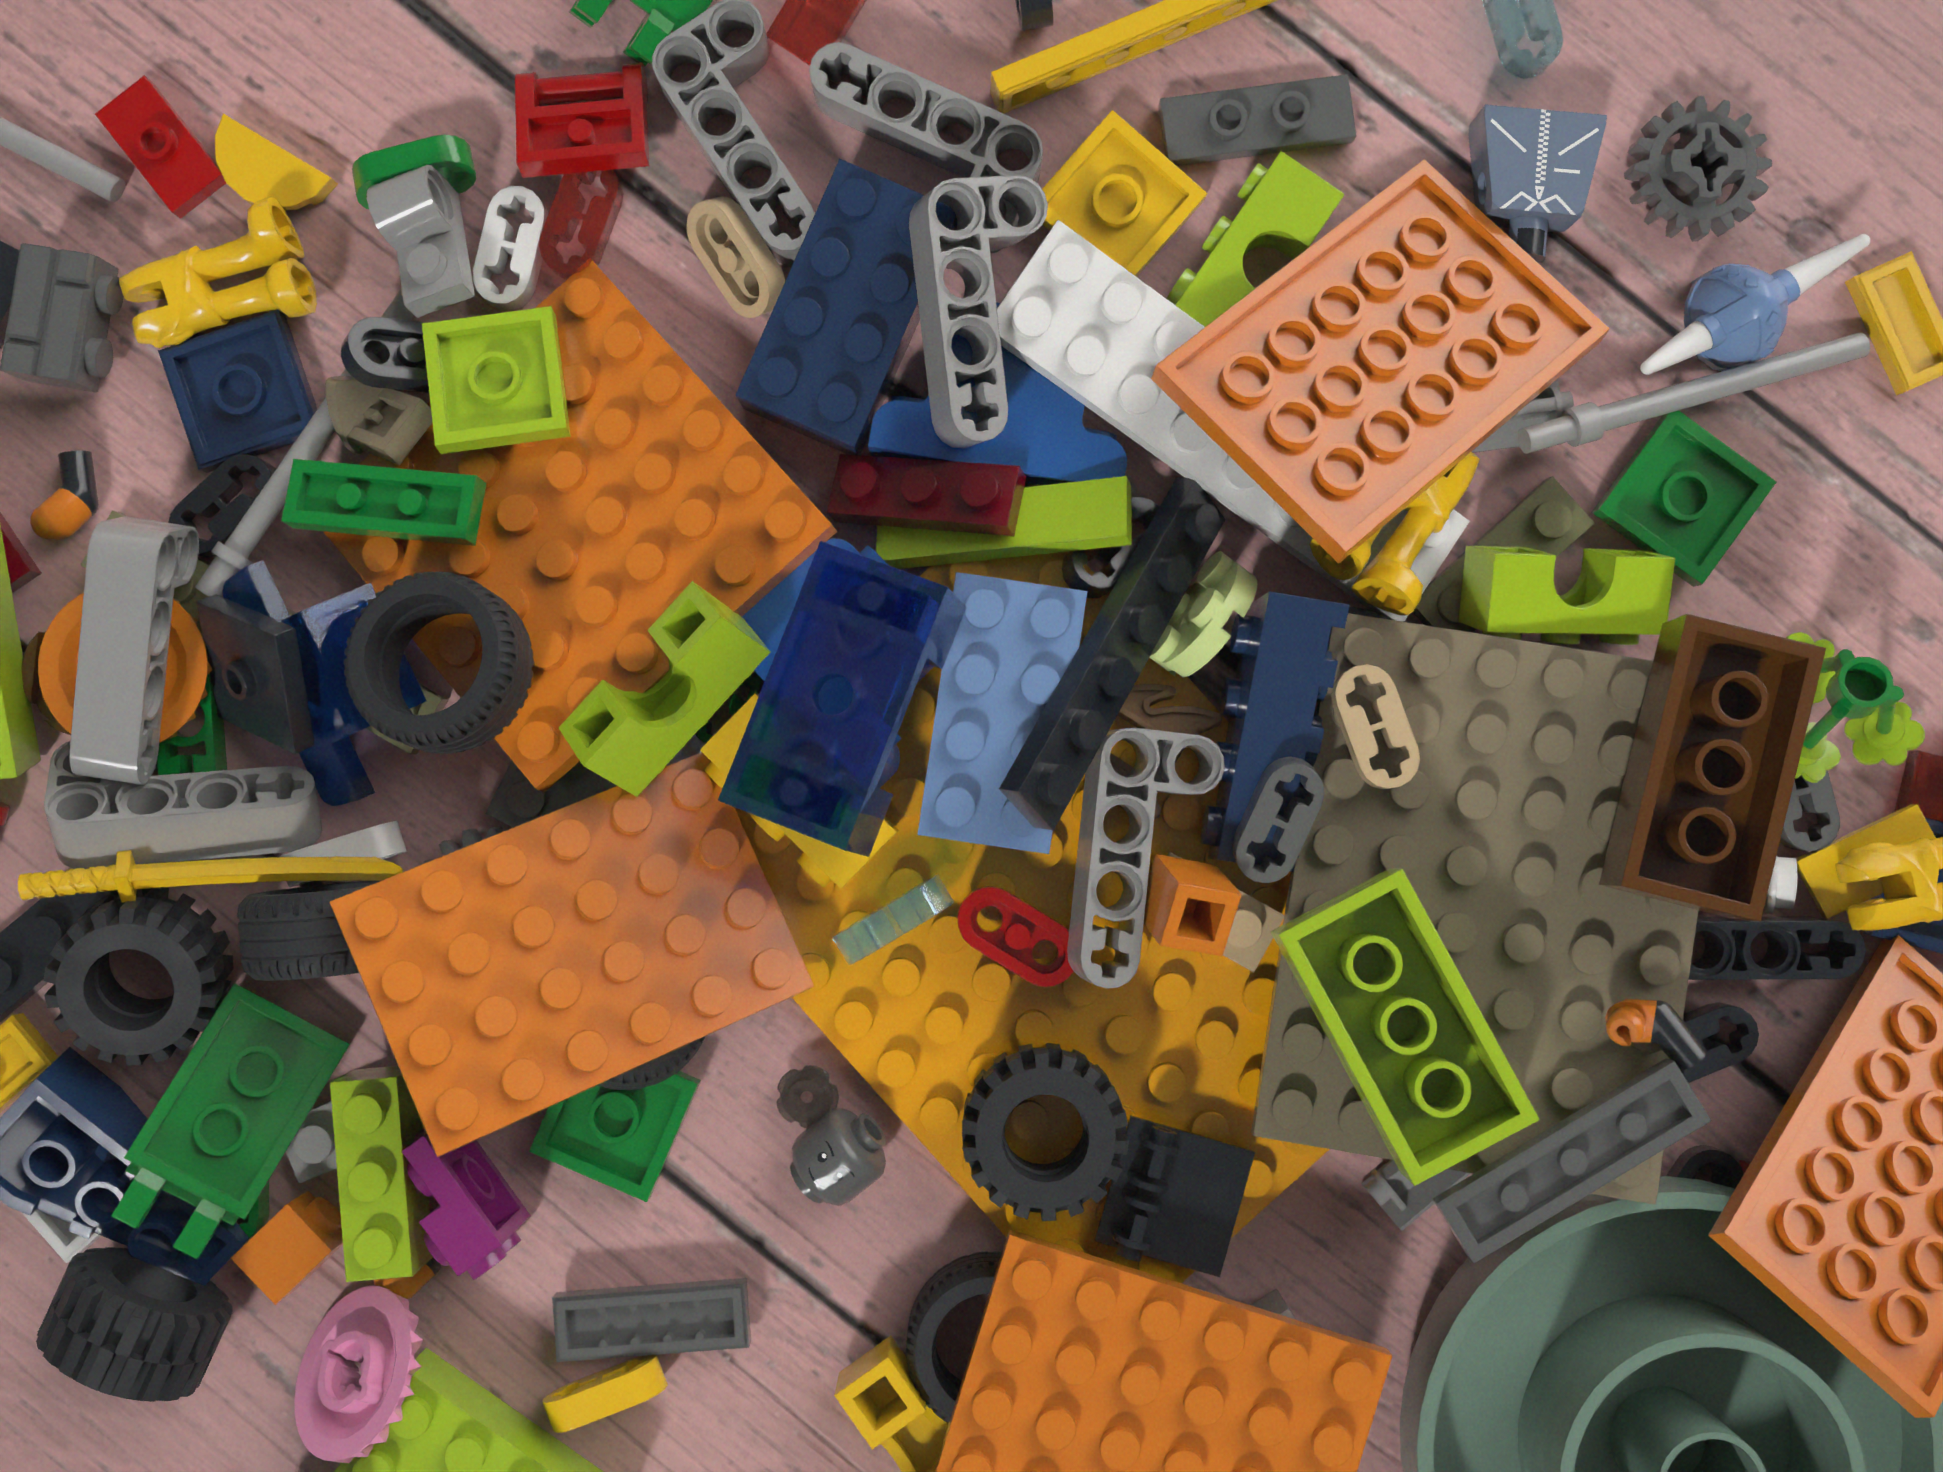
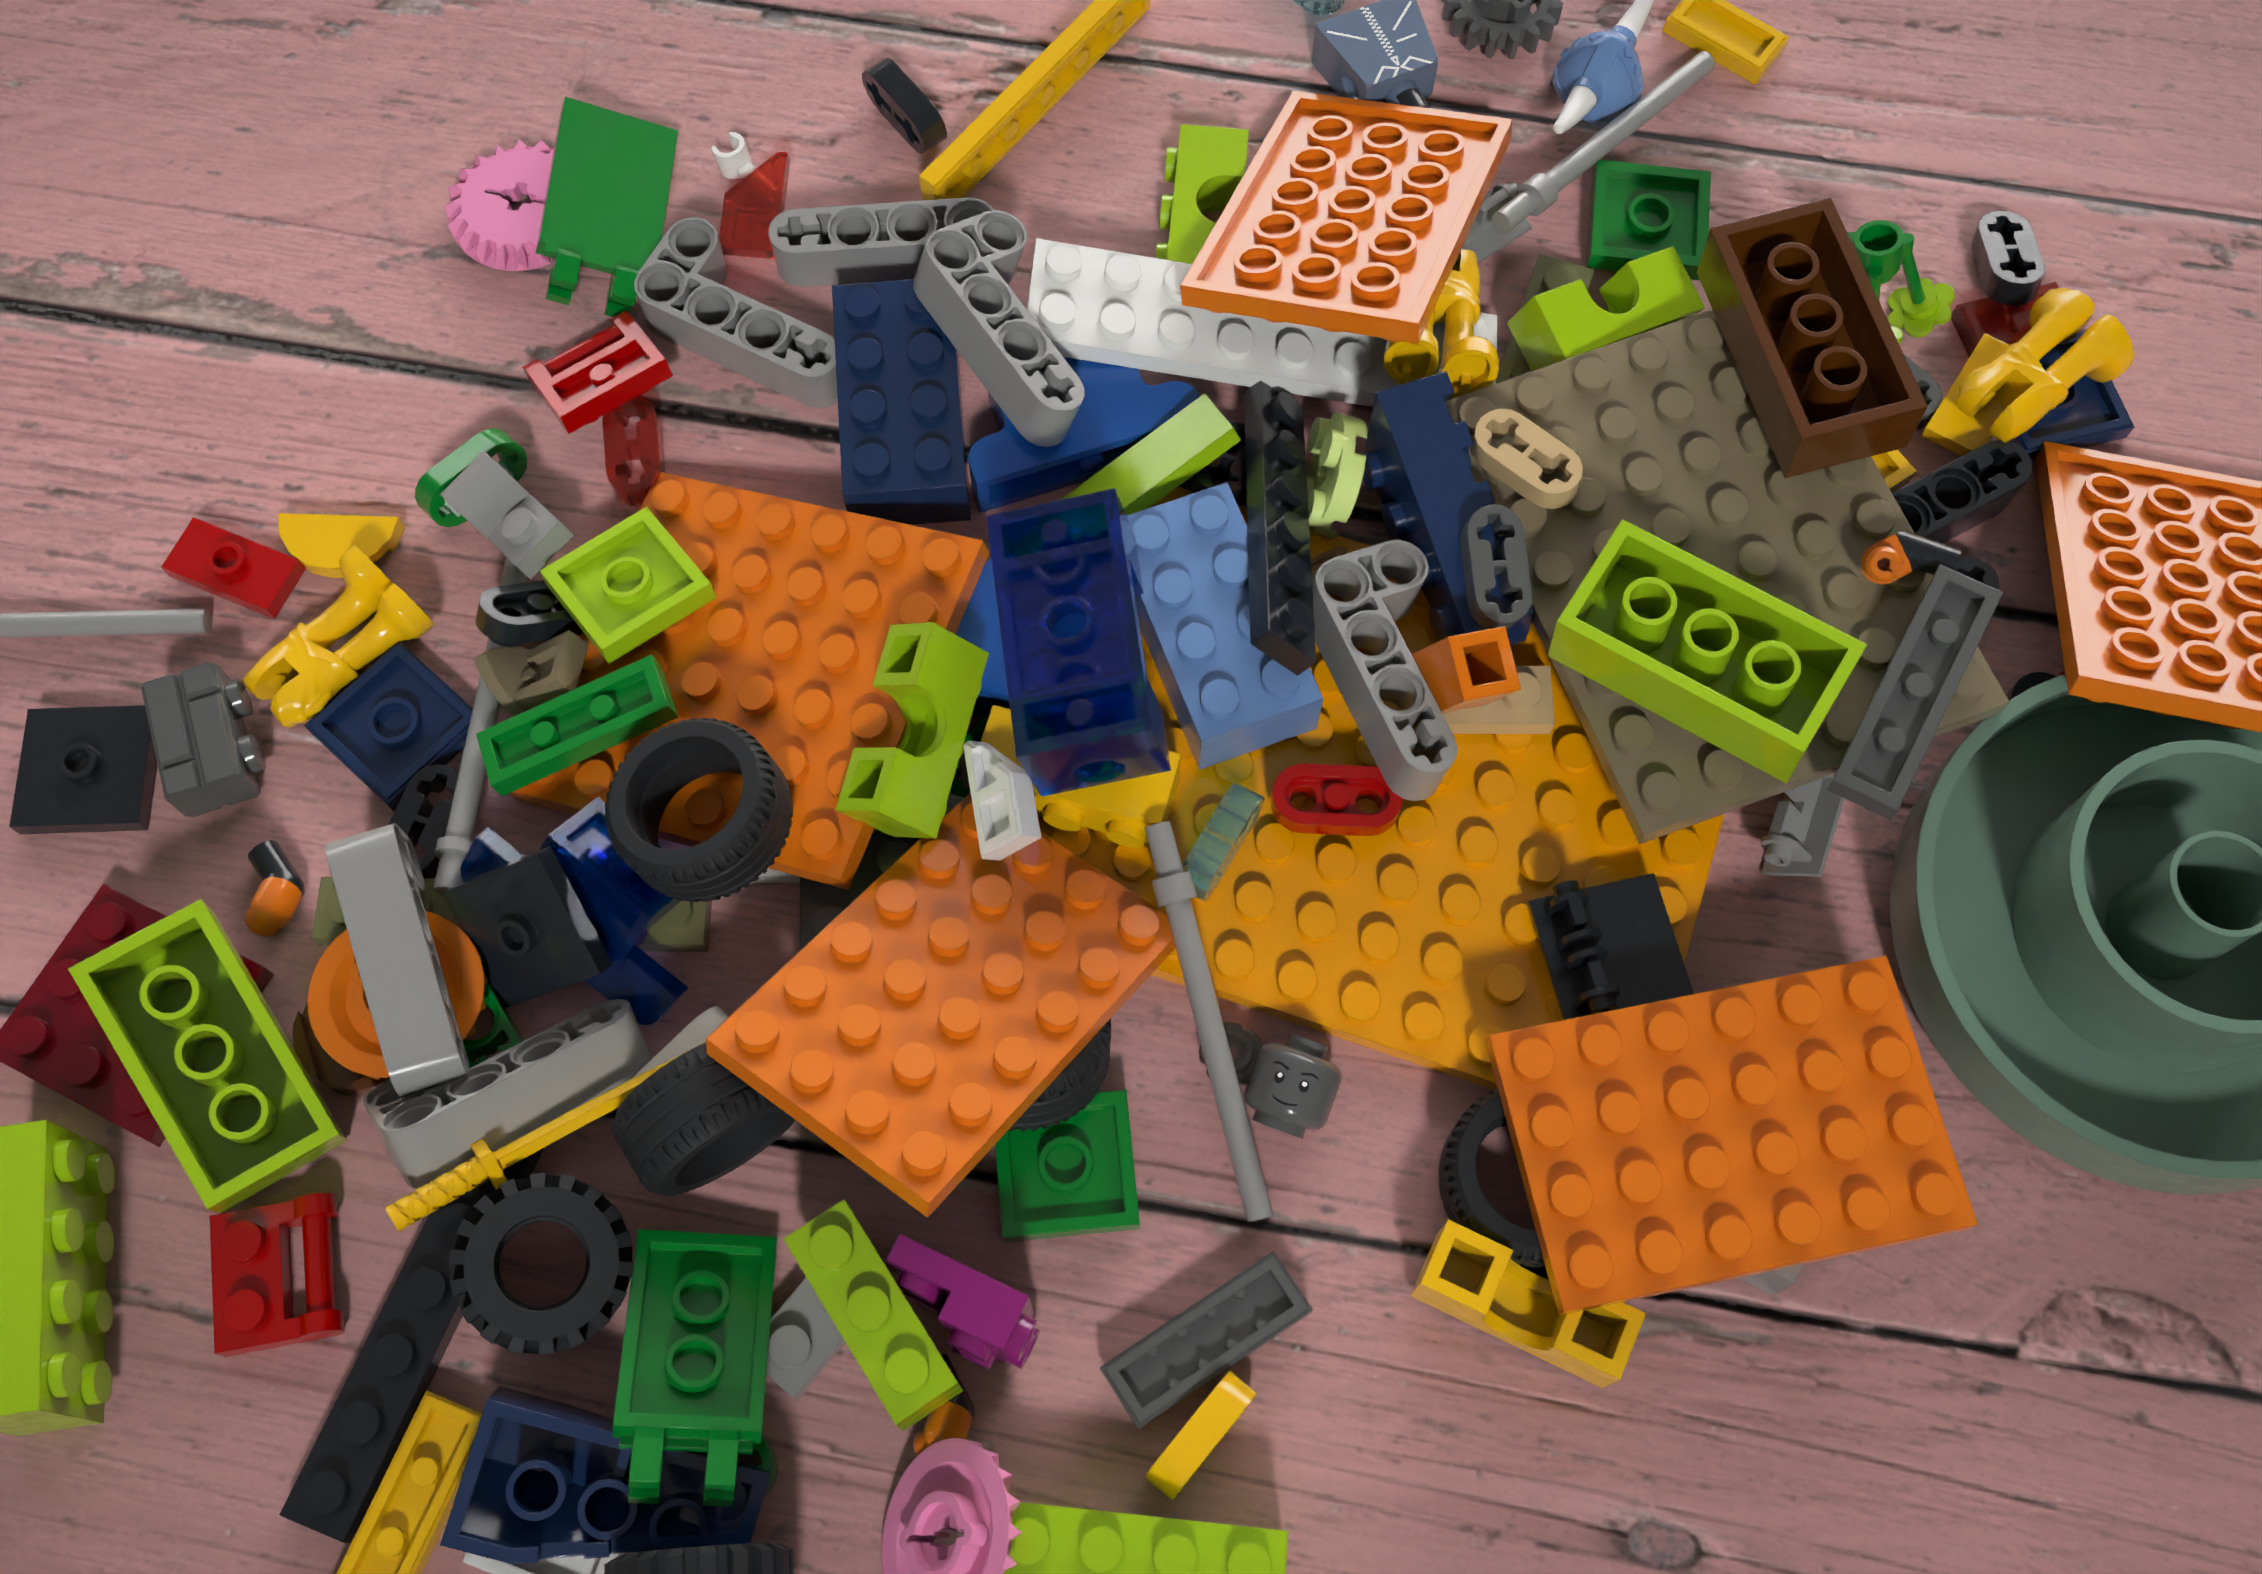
camera: 25 degrees left, 20 degrees down
(291, 1246) = (818, 1457): orange brick -> none
(497, 245) = (571, 501): white beam -> none
(699, 819) = (1001, 802): none -> white tile
(735, 256) = (786, 413): tan plate -> none
(819, 958) = (1174, 891): none -> light grey bar
(927, 494) = (1086, 470): dark red plate -> none
(1056, 1184) = (1476, 892): black tyre -> none
(1121, 195) = (1075, 212): yellow plate -> none
(1257, 120) = (1145, 128): dark grey plate -> none
(1782, 885) = (1925, 451): white plate -> none

